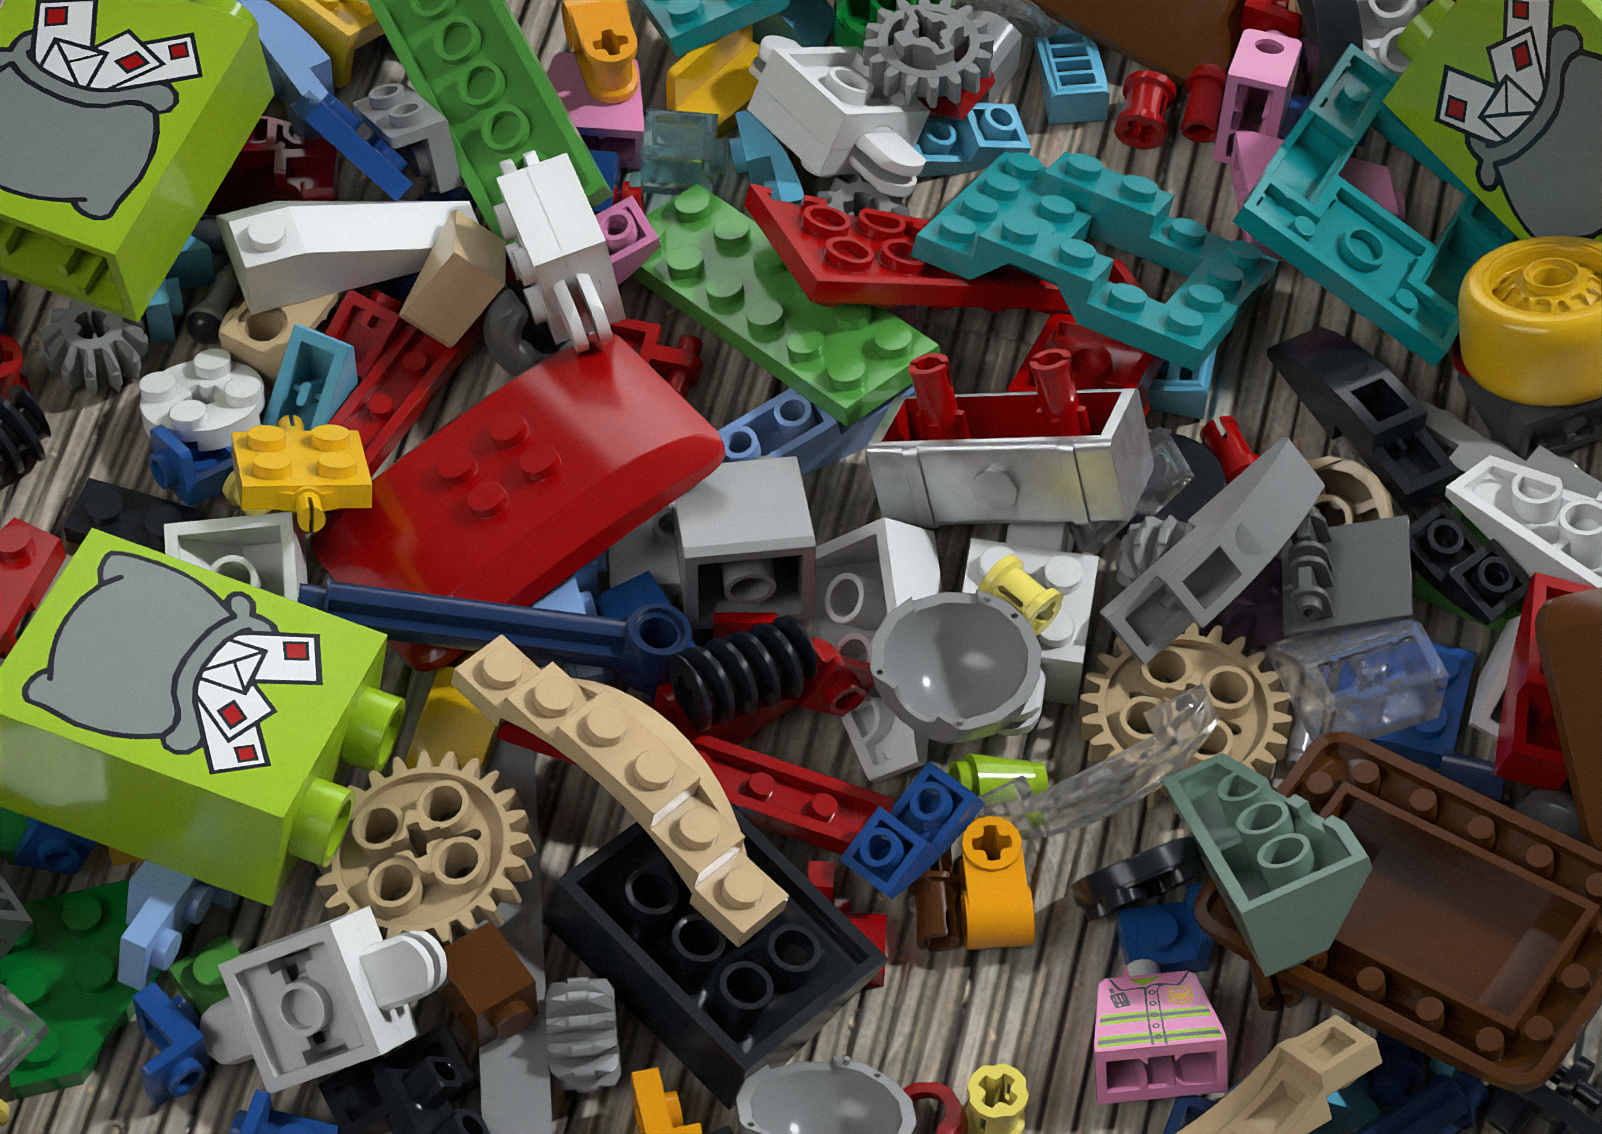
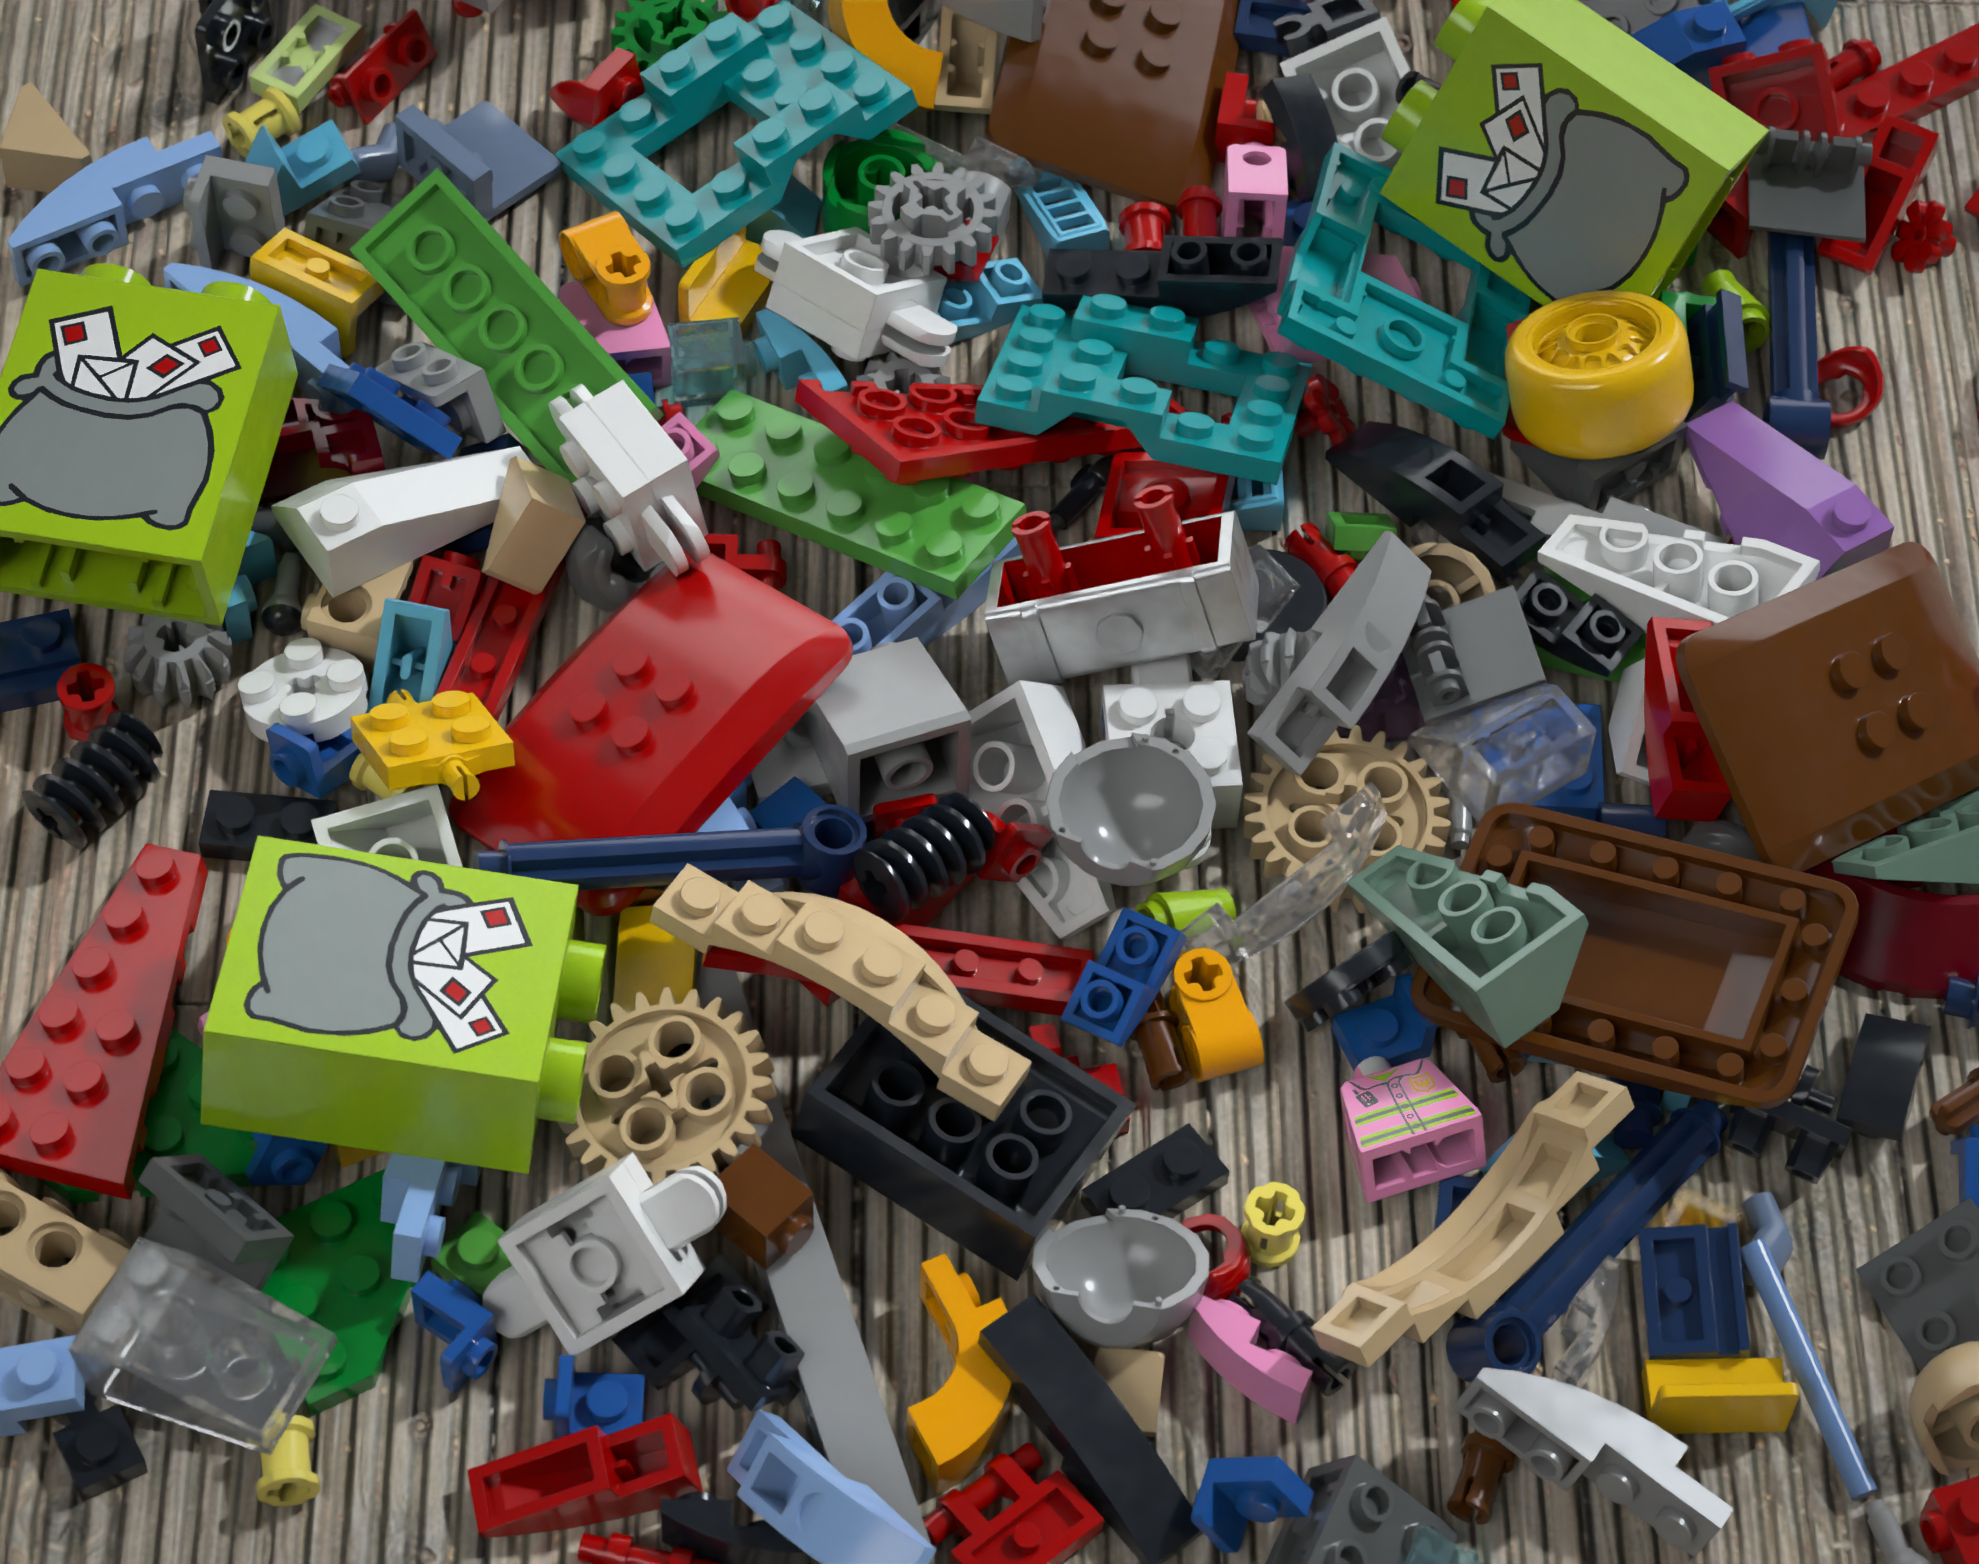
camera: 15 degrees left, 0 degrees up
(583, 1034) = (863, 1235): light grey gear -> none
(900, 1038) = (1161, 1178): none -> black plate
(1016, 345) = (1085, 488): none -> black piece
(1025, 594) = (1165, 722): light yellow bush -> none
(1172, 149) = (1189, 274): none -> black slope
(1268, 427) = (1356, 532): none -> bright green plate
(1276, 308) = (1324, 411): none -> red plant

